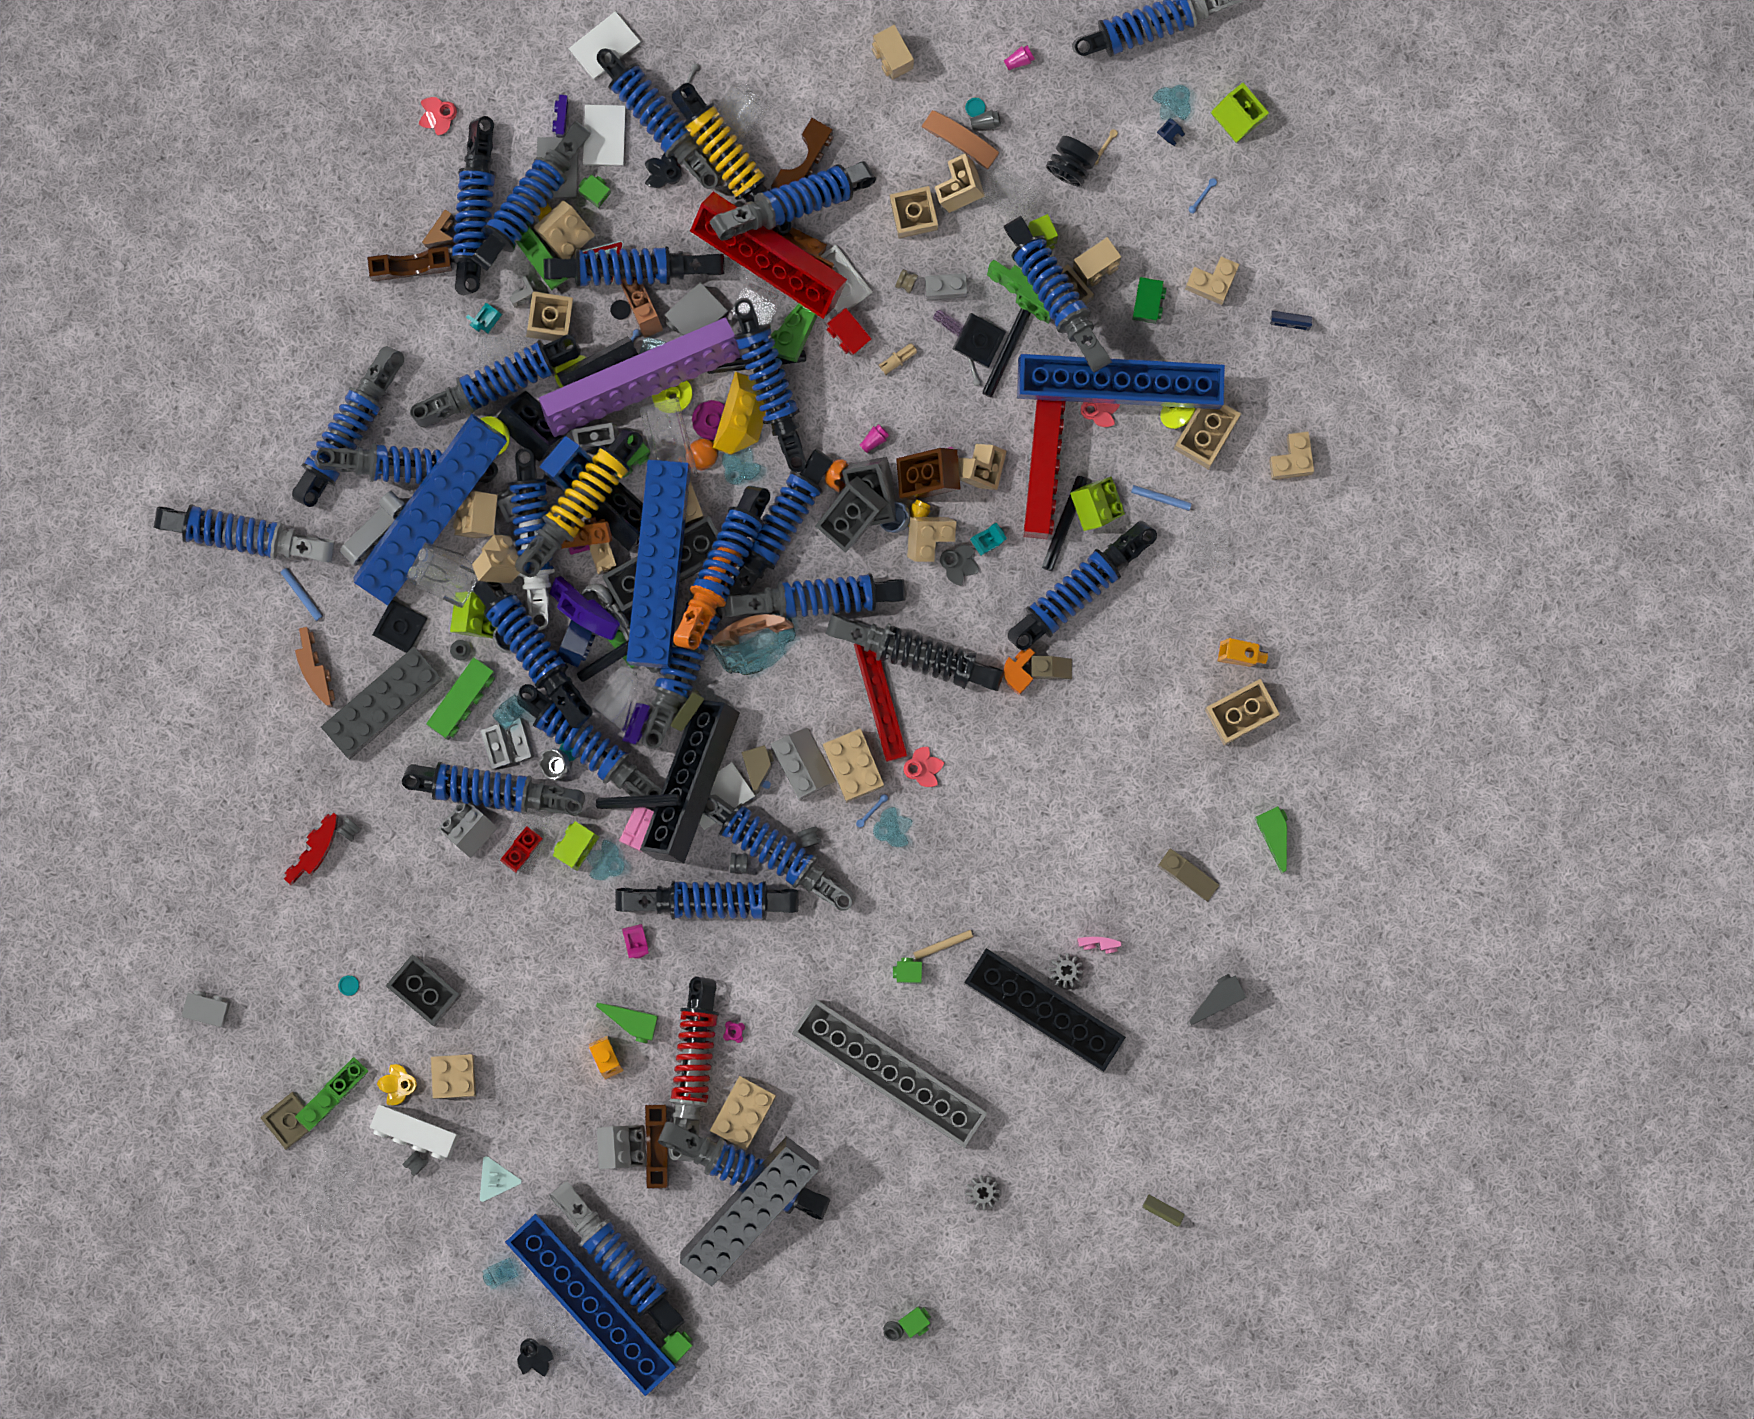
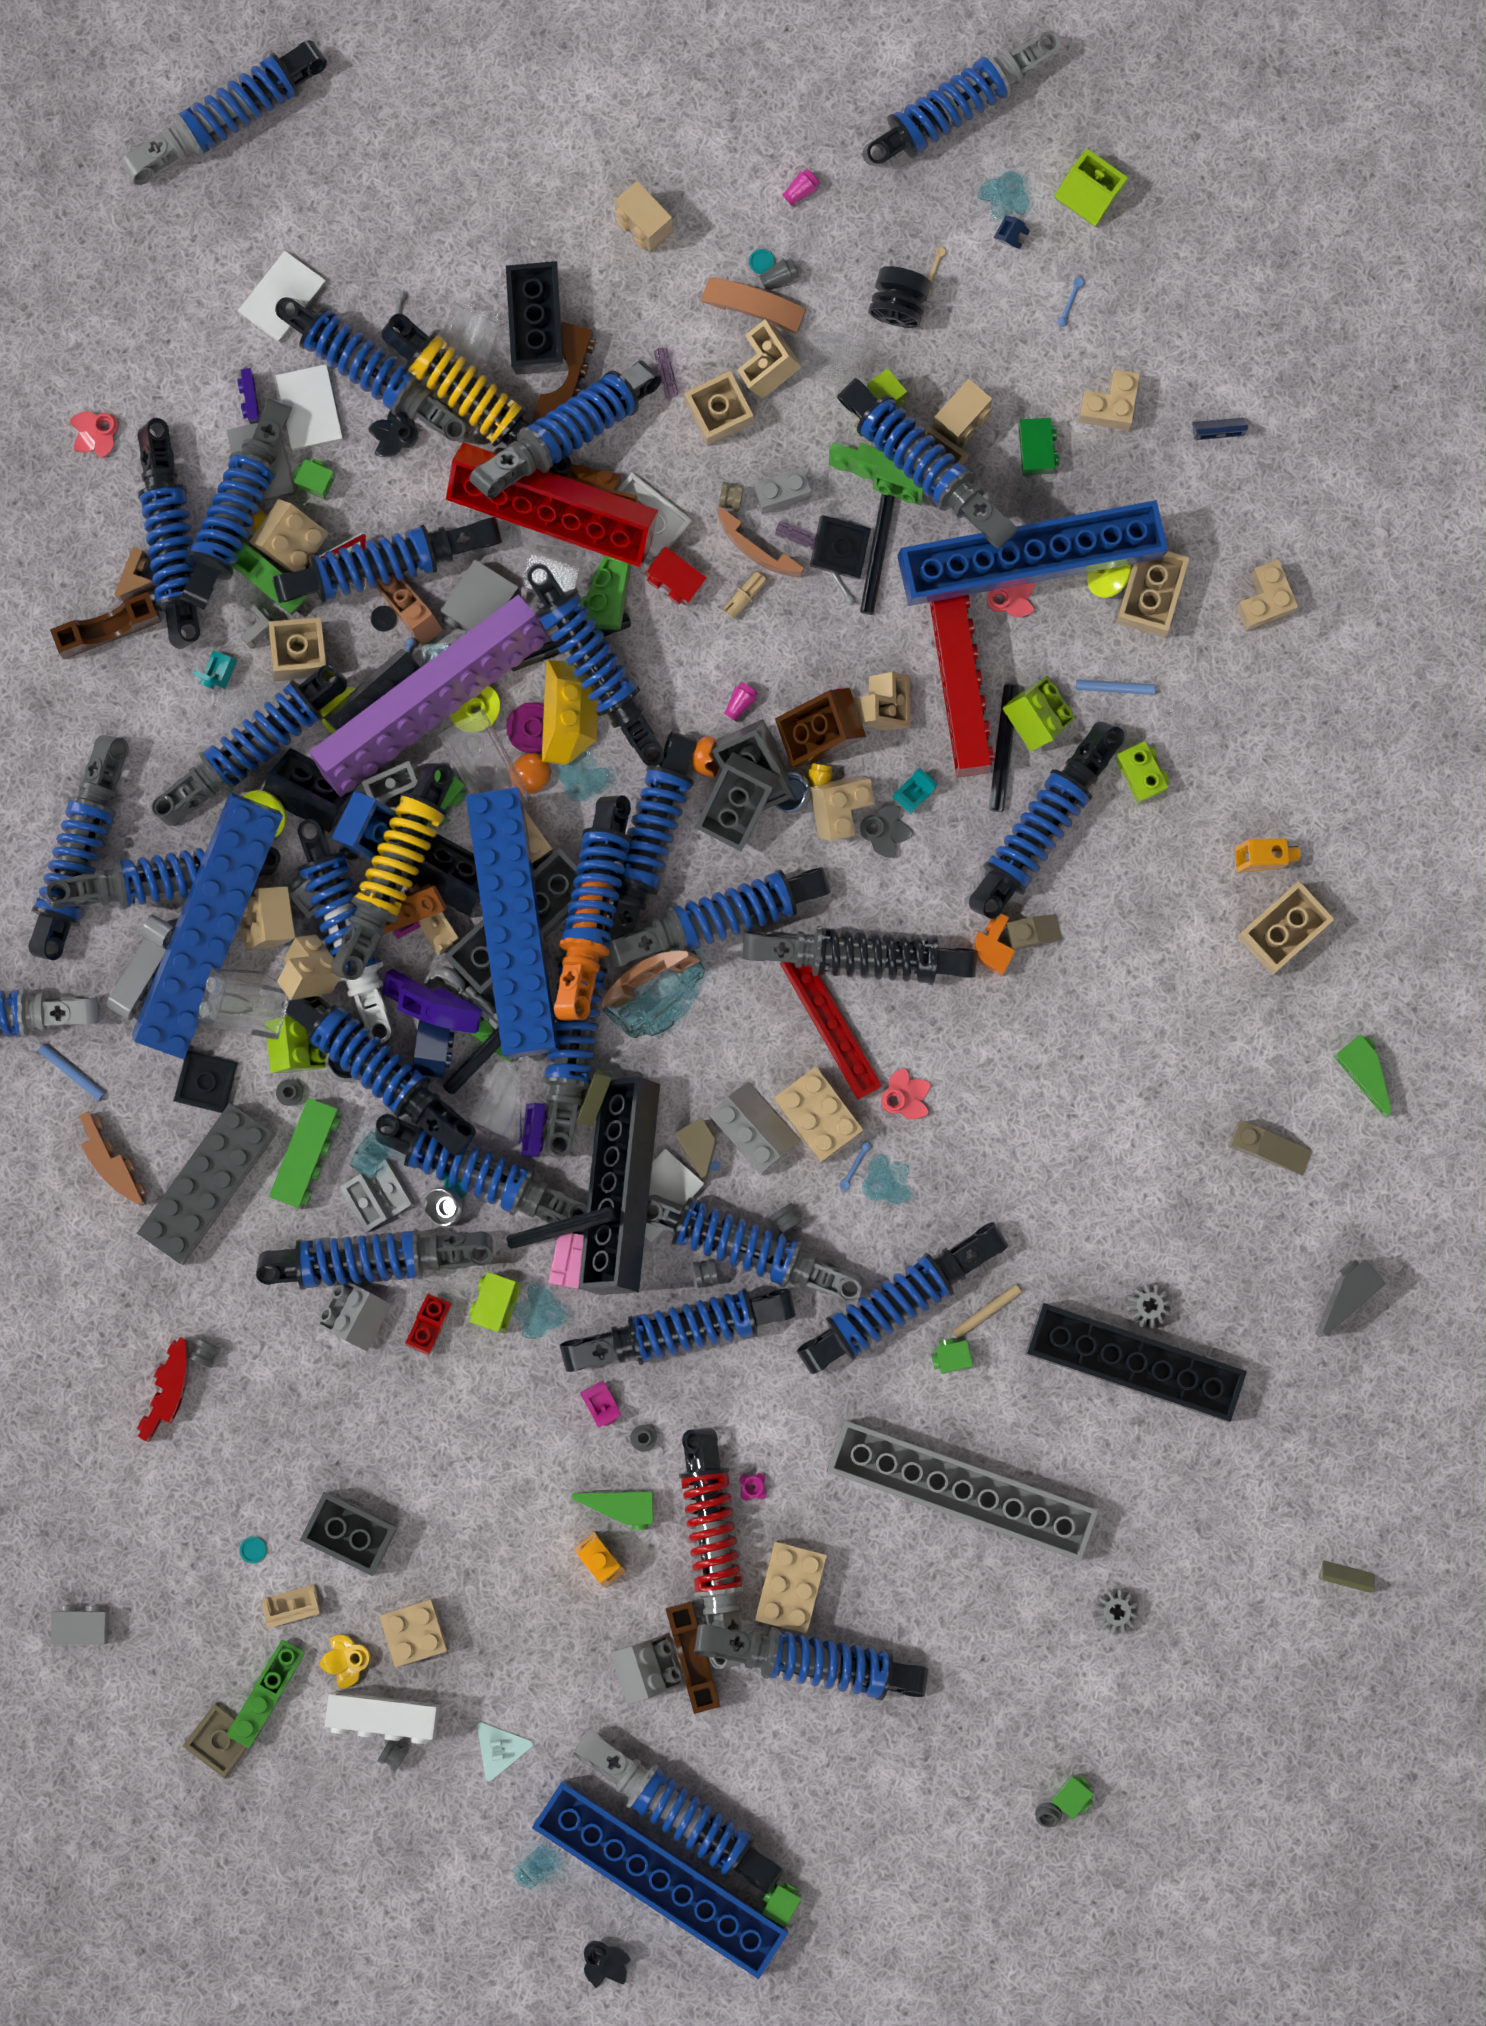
camera: 15 degrees left, 0 degrees up
(366, 1034) = (291, 1606): none -> tan hinge
(666, 979) = (646, 1446): none -> dark grey plate
(749, 1211) = (831, 1711): brick -> none
(791, 108) = (534, 317): none -> black slope
(881, 175) = (666, 372): none -> clear purple axle
(904, 910) = (923, 1281): none -> piece
(932, 343) = (782, 566): none -> nougat slope
(1106, 944) = (1191, 1260): bright pink slope -> none
(1164, 567) = (1142, 772): none -> lime brick

